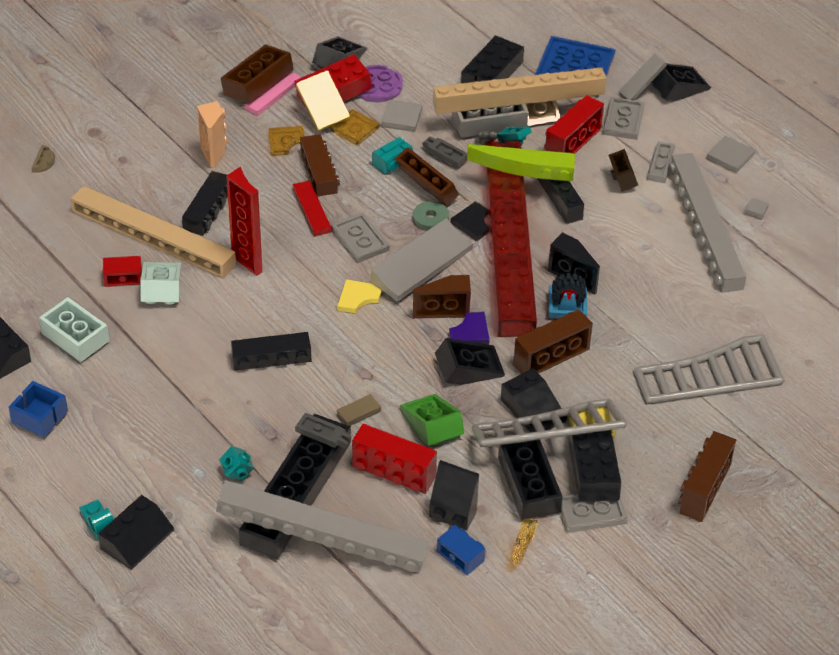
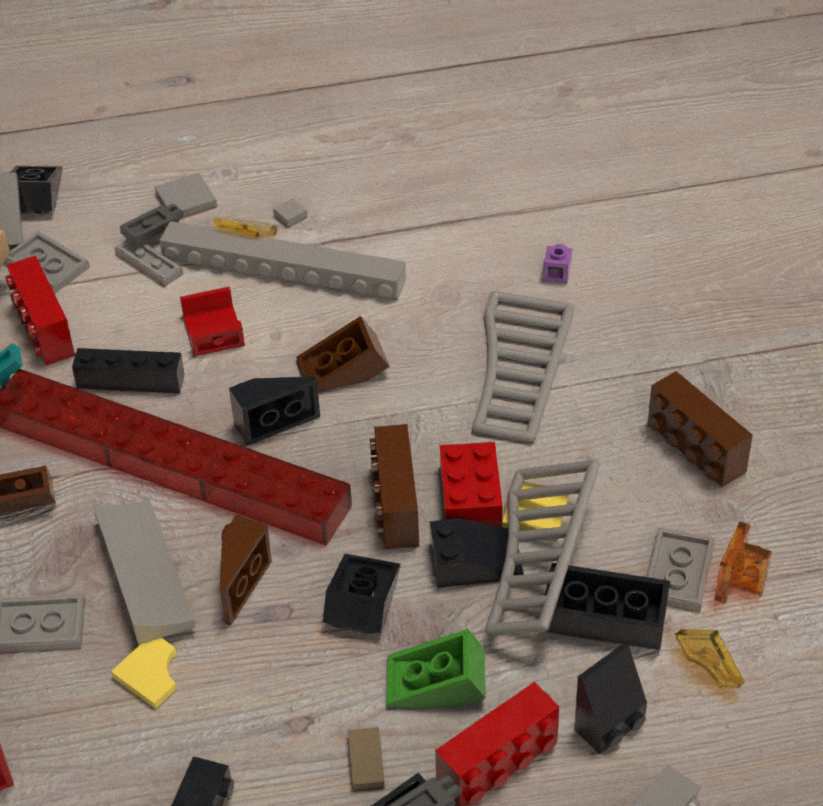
camera: 60 degrees left, 0 degrees up
(428, 208) = (57, 513): sand green tile -> none
(461, 549) = (687, 736): blue brick -> none
(471, 329) = (302, 567): dark purple tile -> none
(472, 220) = (105, 485): black tile -> none
(524, 161) = (72, 374): lime slope -> none
(567, 295) = (322, 440): plate -> none
(583, 380) = (471, 482): none -> red brick
(595, 466) = (626, 531): black brick -> none
(604, 529) = (742, 566): none -> clear orange bracket
(622, 170) = (144, 295): dark brown brick -> none
(631, 212) = (211, 321): none -> red panel
(645, 284) = (344, 357): none -> reddish brown slope
(686, 145) = (150, 223): none -> dark grey hinge
(718, 191) = (246, 227): none -> clear yellow tile
(814, 358) = (559, 257): none -> medium lavender brick

